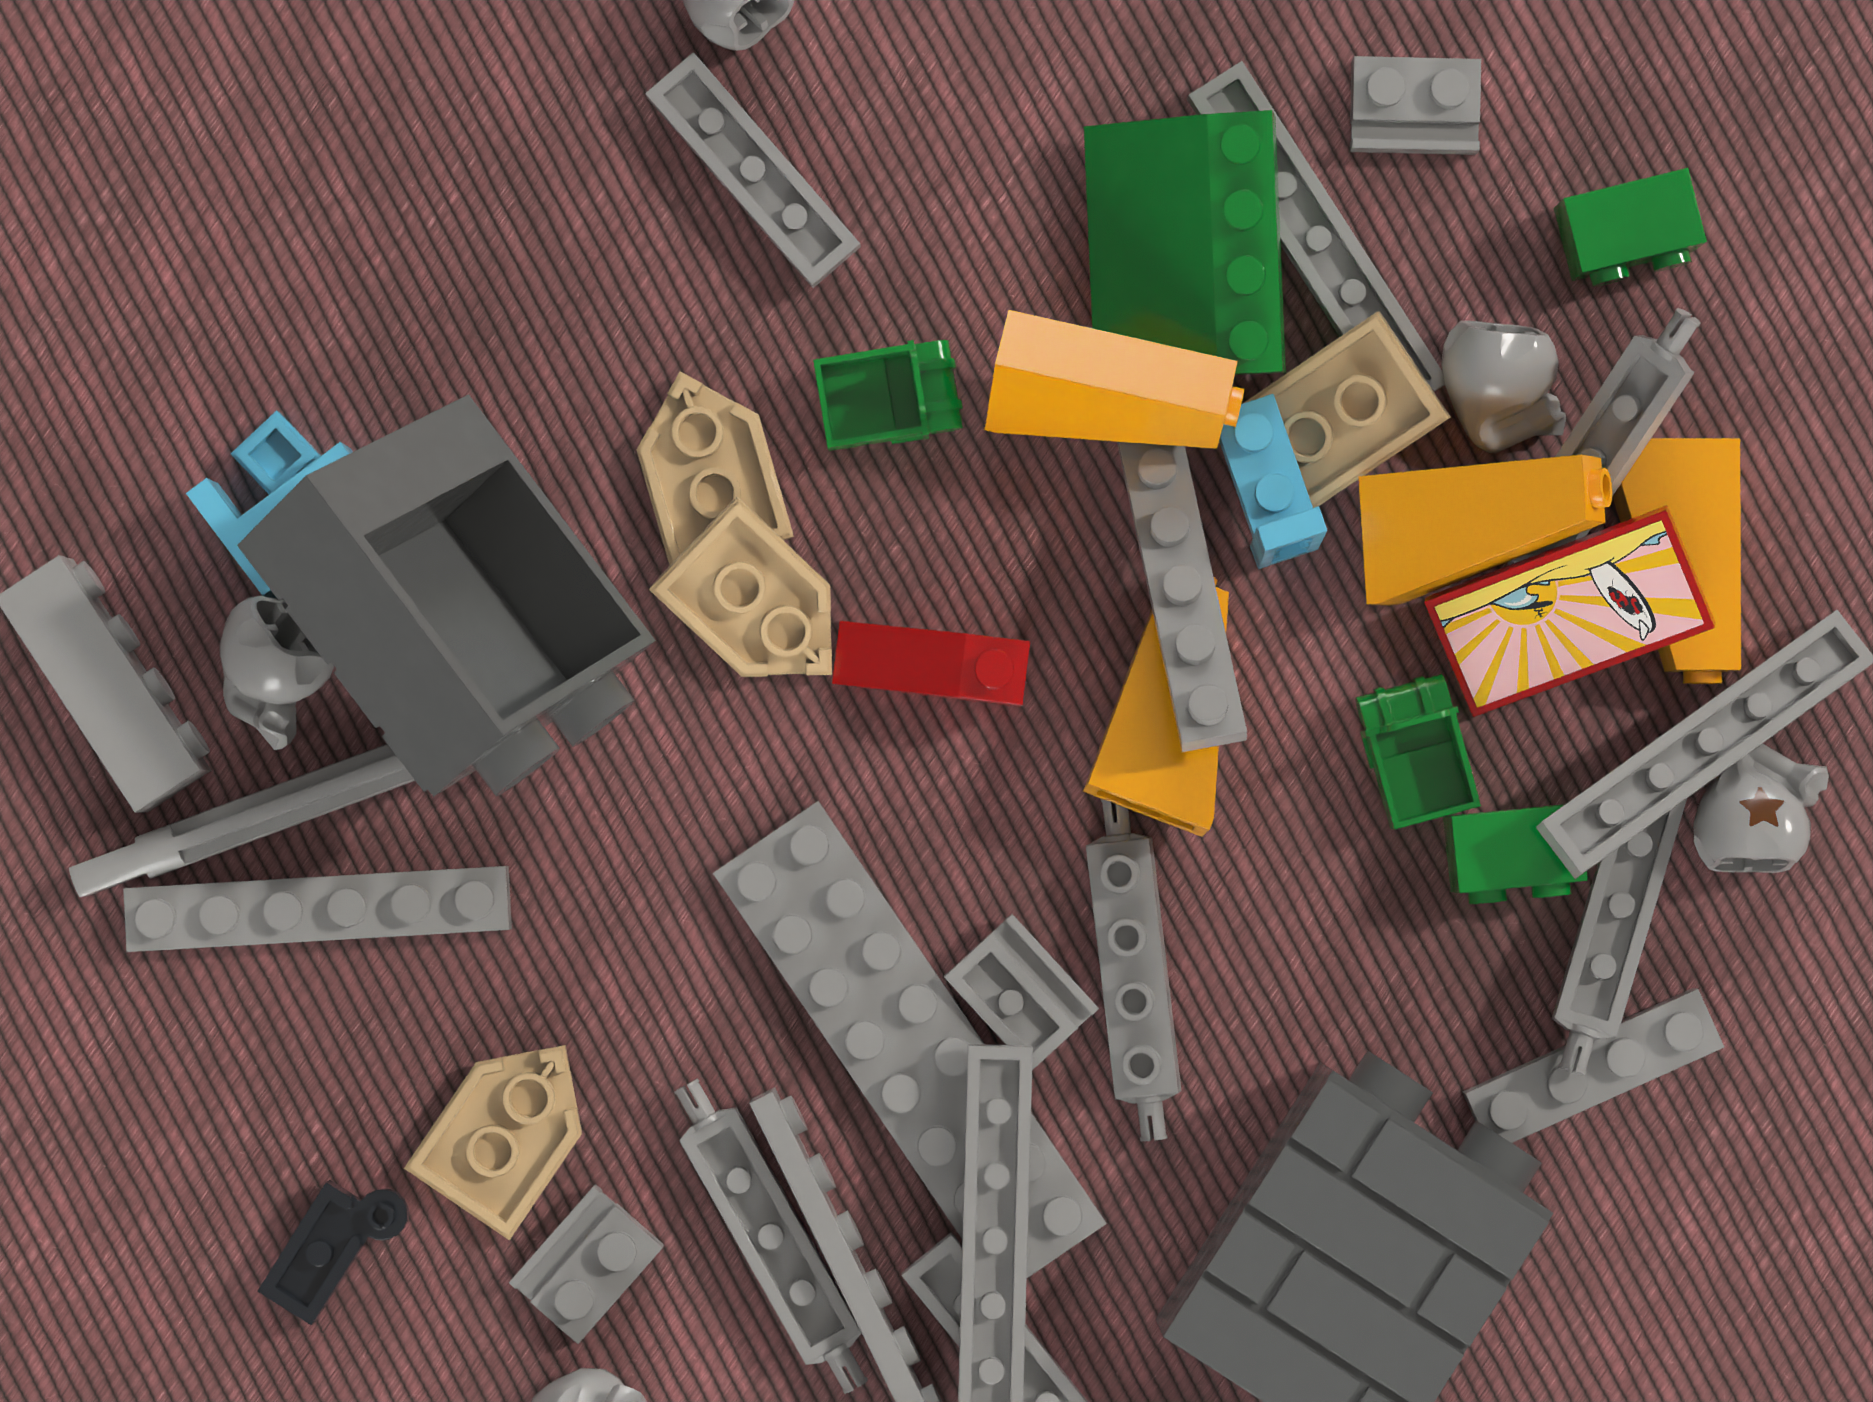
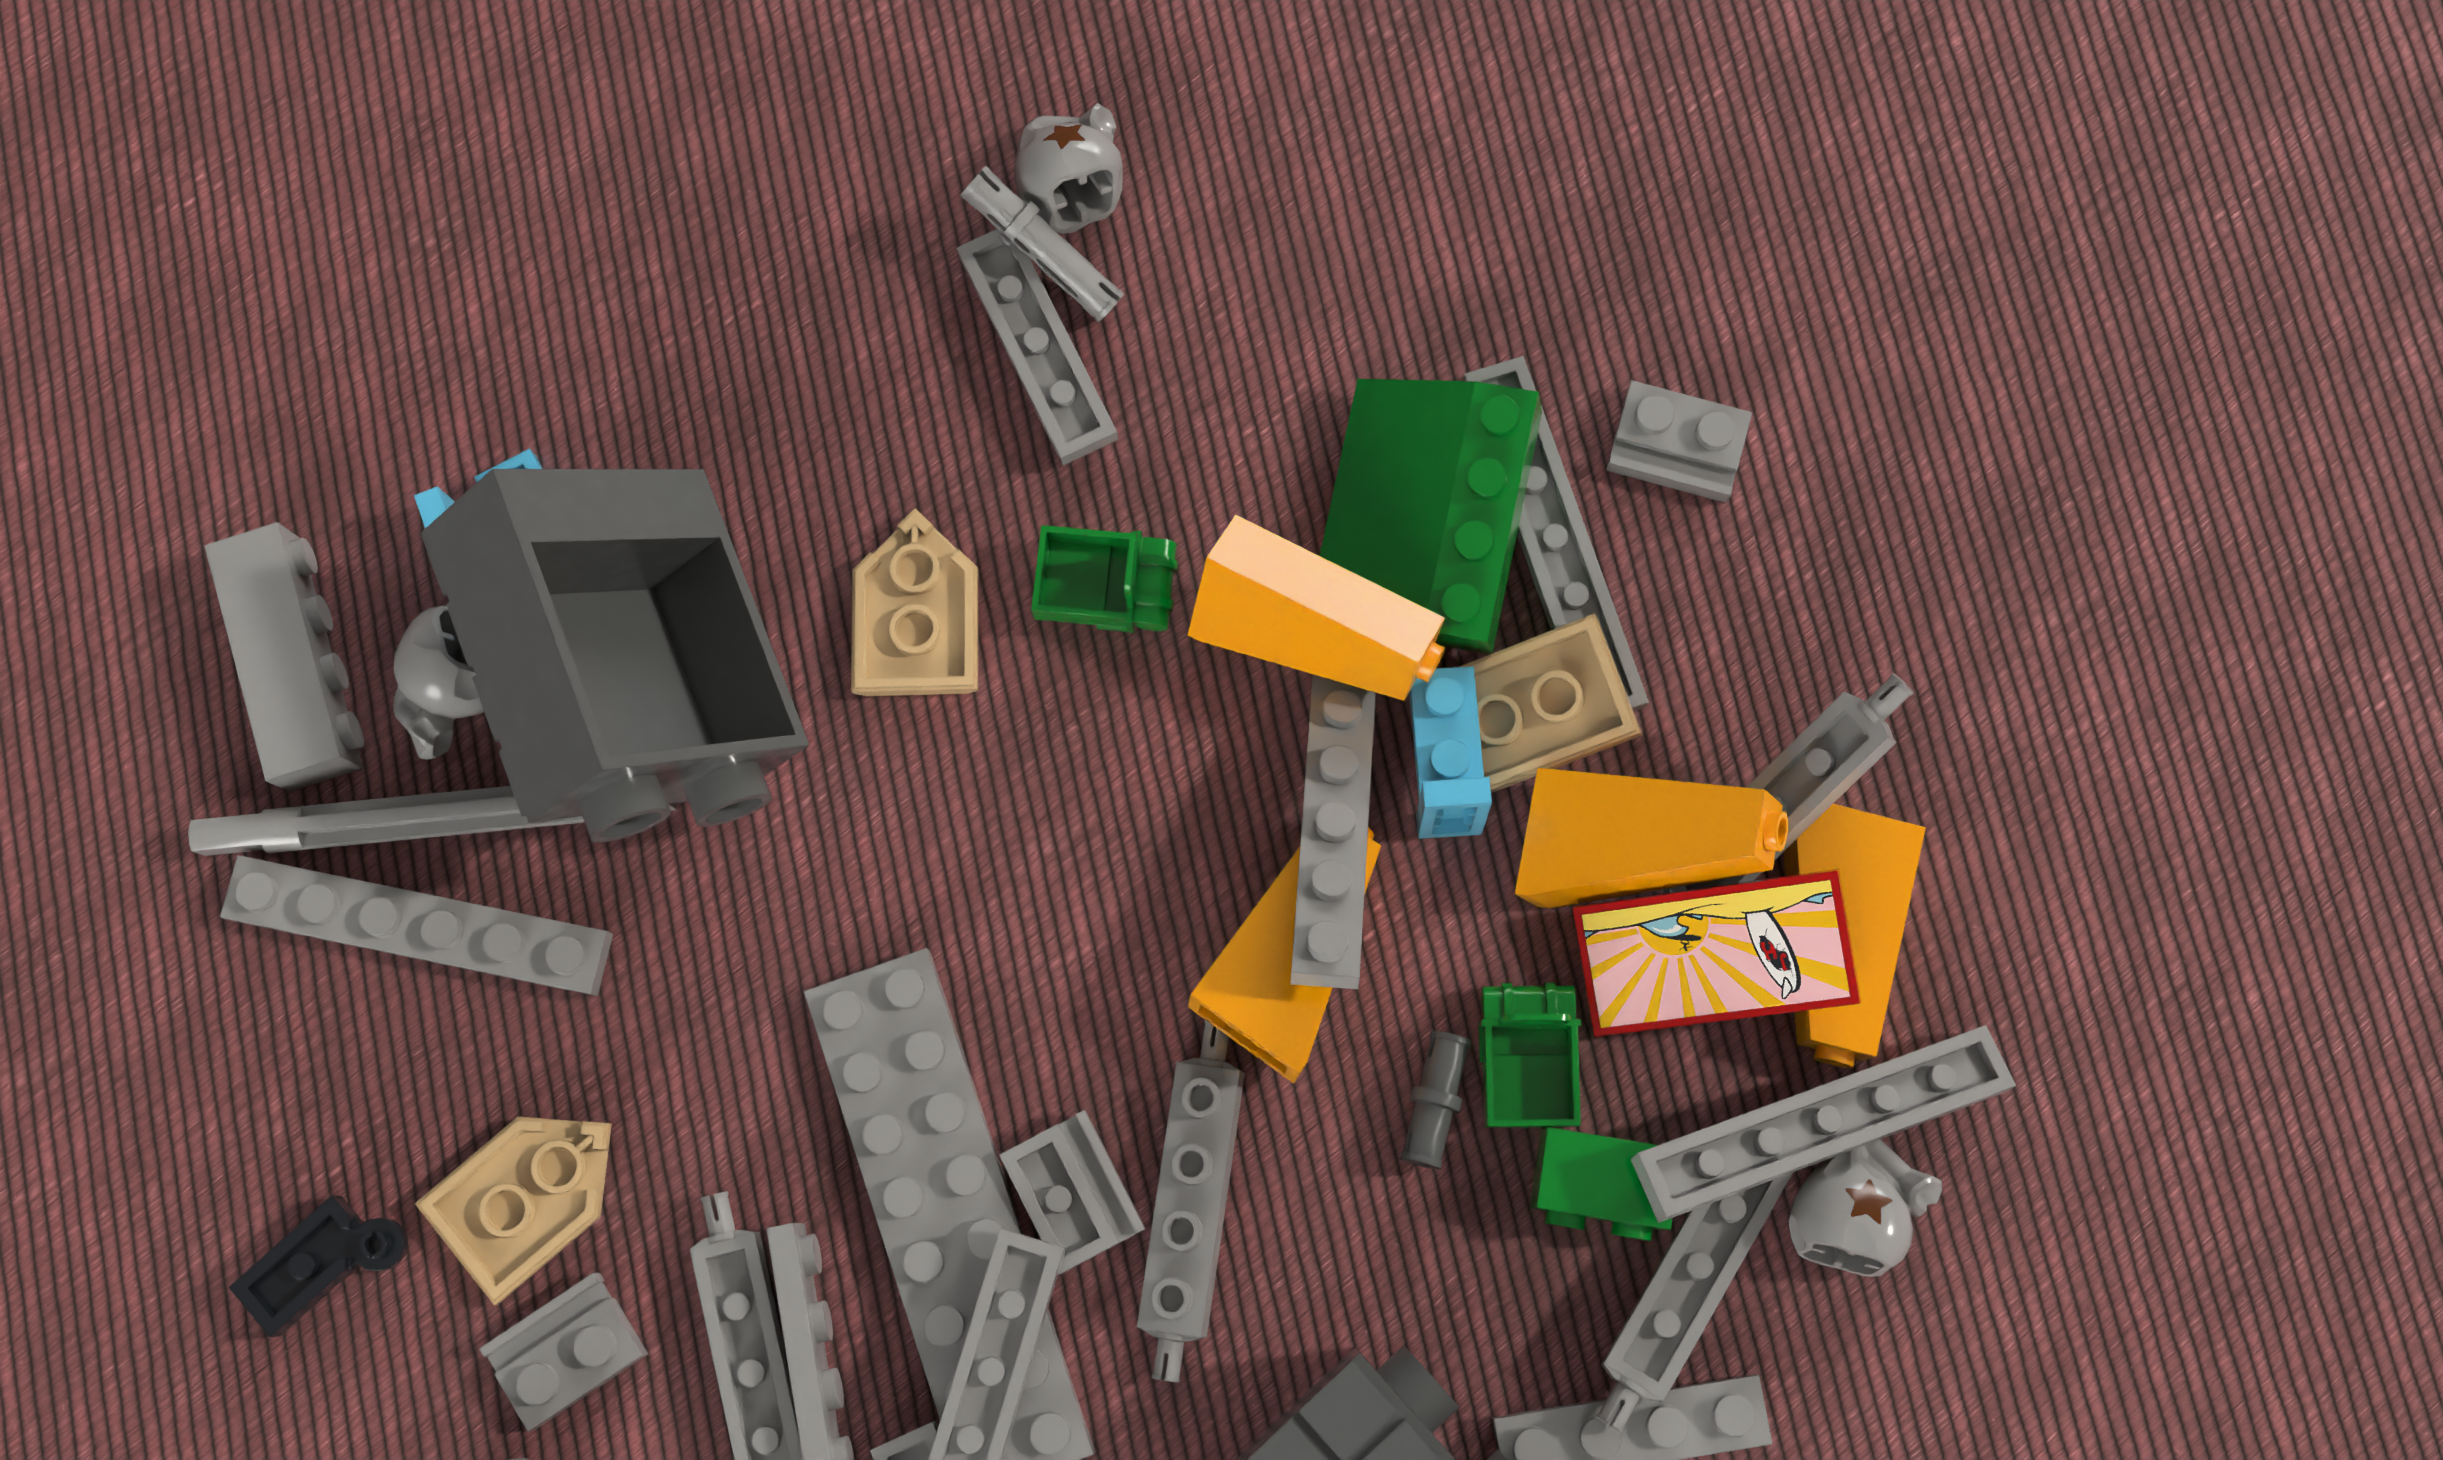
camera: 20 degrees right, 10 degrees down
(712, 59) = (1035, 238): none -> light grey pin
(751, 597) = (919, 735): tan tile -> none
(931, 663) = (1078, 844): red slope -> none
(1339, 816) = (1435, 1100): none -> dark grey pin
(1501, 383) = (1700, 717): light grey piece -> none
(1630, 226) = (1861, 601): green brick -> none

